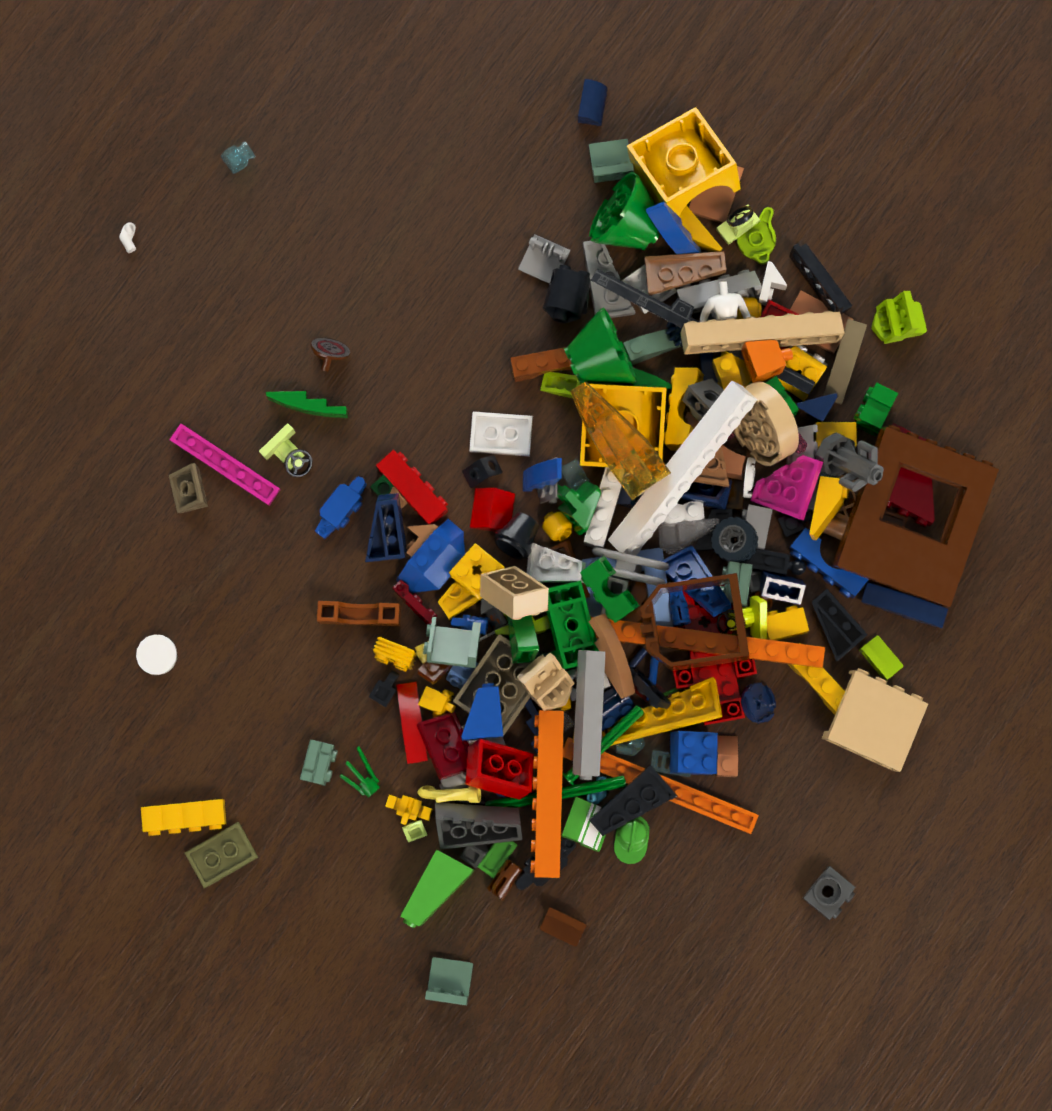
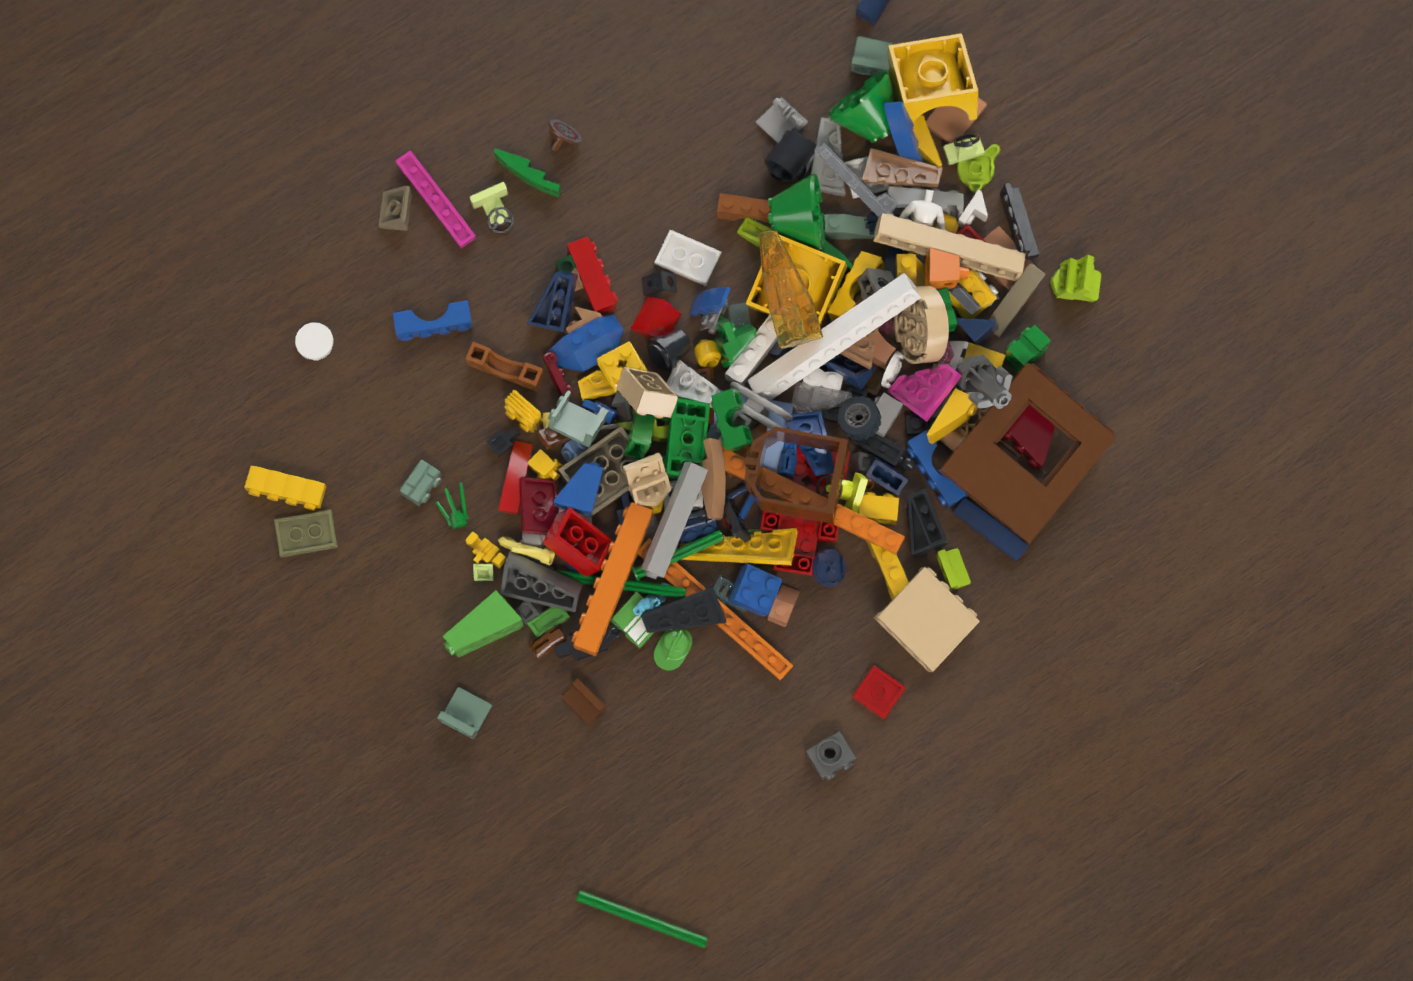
camera: 10 degrees right, 5 degrees down
(291, 579) = (456, 318): none -> blue arch
(340, 506) = (523, 270): blue hinge -> none
(590, 807) = (646, 604): none -> medium azure arm
(632, 748) = (702, 569): clear light blue arm -> none
(744, 576) = (856, 451): sand green brick -> none
(852, 810) = (879, 692): none -> red tile

